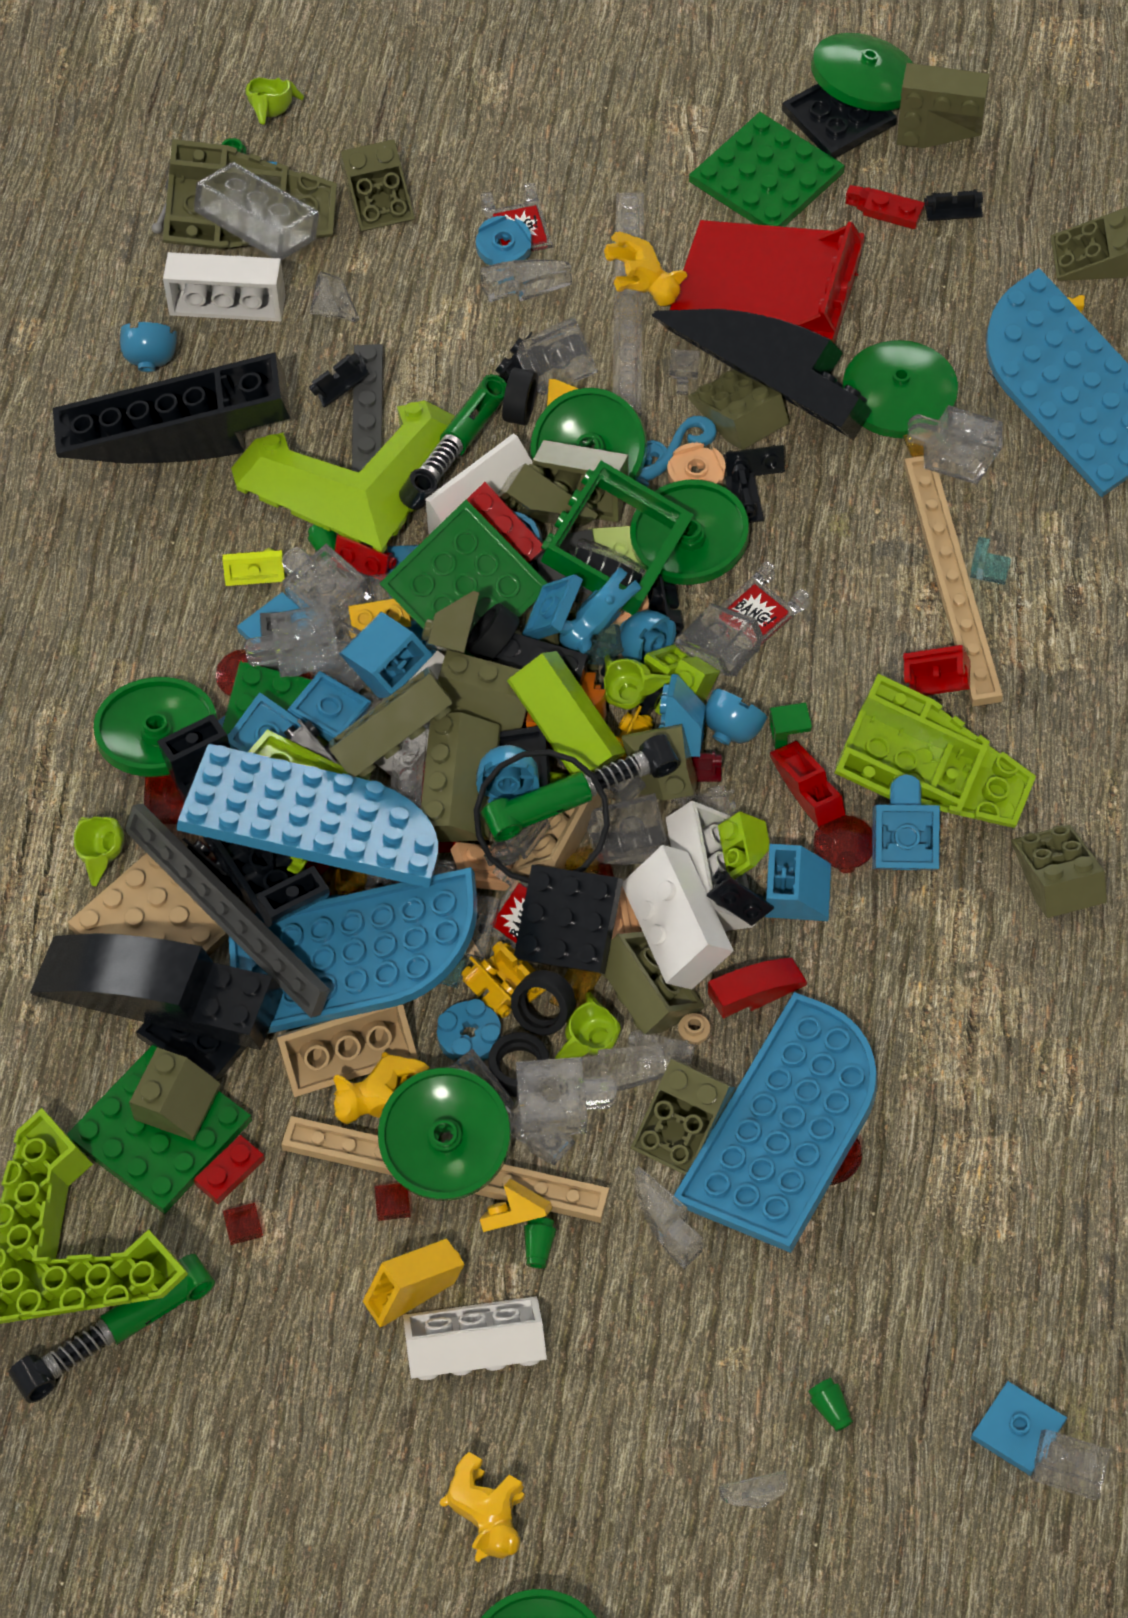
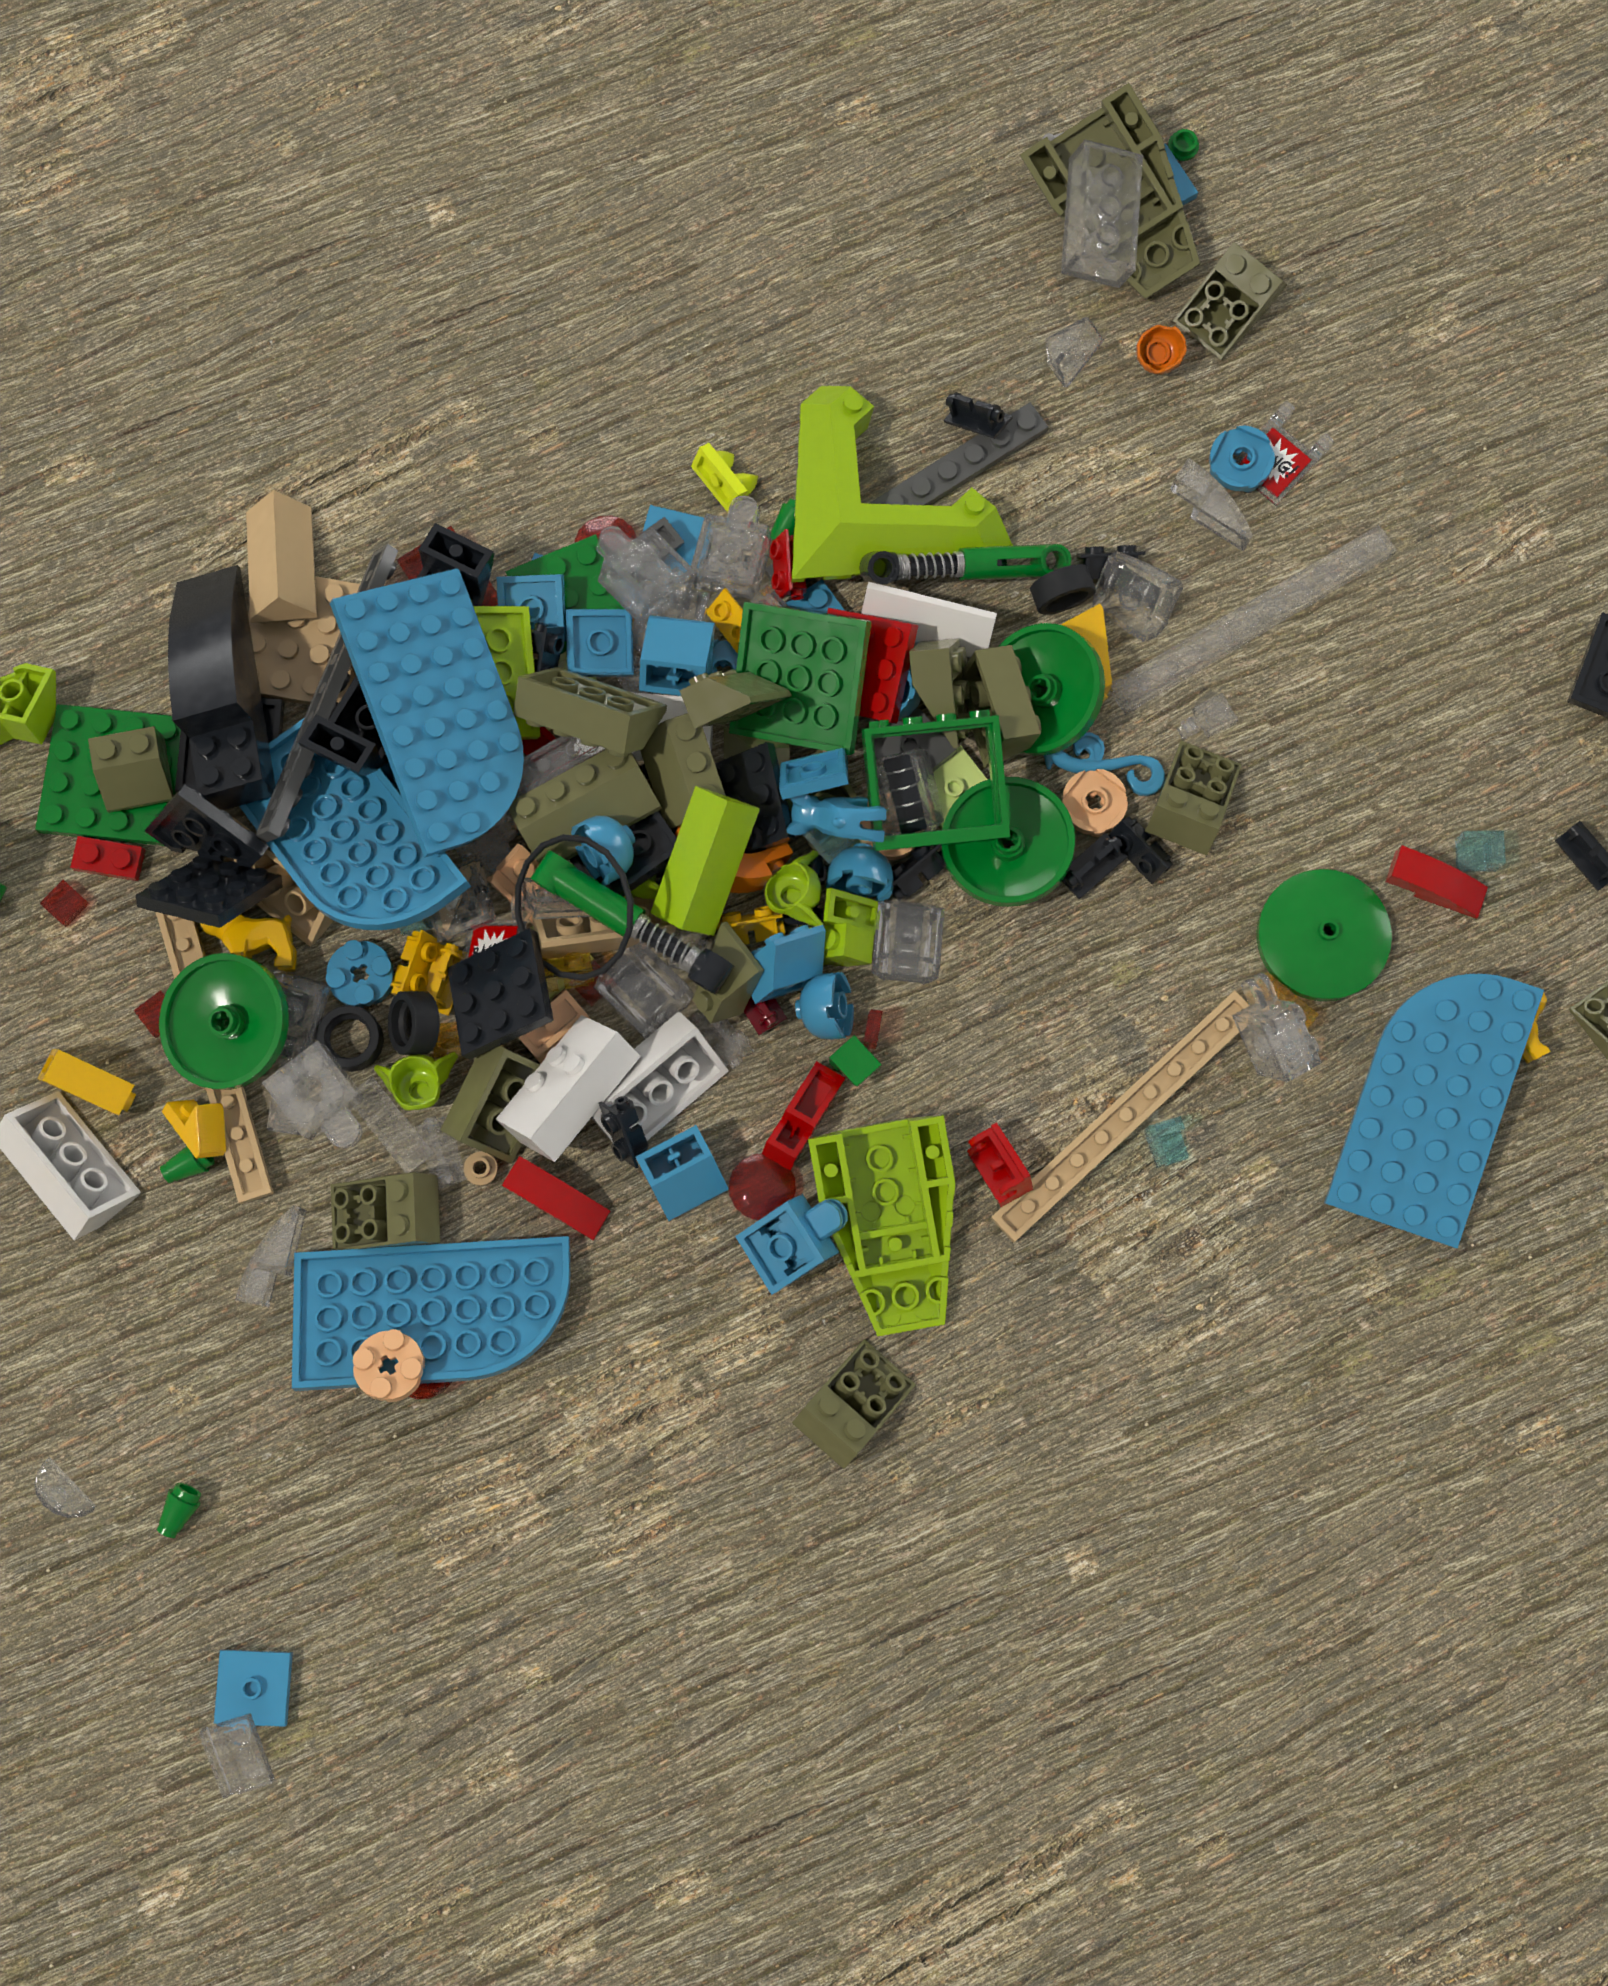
camera: 55 degrees right, 20 degrees up
(75, 899) = (280, 560): none -> tan slope
(97, 844) = (345, 537): lime piece -> none
(142, 714) = (495, 501): green dish -> none
(148, 345) = (897, 224): dark azure cylinder -> none
(176, 417) = (827, 299): black slope -> none
(224, 286) = (1008, 244): white brick -> none
(271, 96) = (1267, 135): lime piece -> none
(272, 1057) = (197, 825): none -> black plate
(327, 1081) = (209, 891): none -> black plate
(381, 243) = (1161, 349): none -> orange hair
(492, 632) = (760, 735): black tyre -> none
(643, 269) = (1289, 611): yellow animal -> none
(743, 842) = (689, 1101): lime slope -> none
(763, 604) = (973, 953): flag -> none
(766, 172) = (1506, 651): green plate -> none
(769, 696) = (872, 1029): none -> clear red tile
(773, 272) = (1364, 733): red door -> none
(777, 356) = (1259, 803): black slope -> none
(819, 1144) = (370, 1359): none -> light nougat plate
(885, 206) = (1545, 790): red hinge -> none
(905, 263) = (1480, 850): none -> clear light blue panel
(908, 301) = (1436, 882): none -> red slope

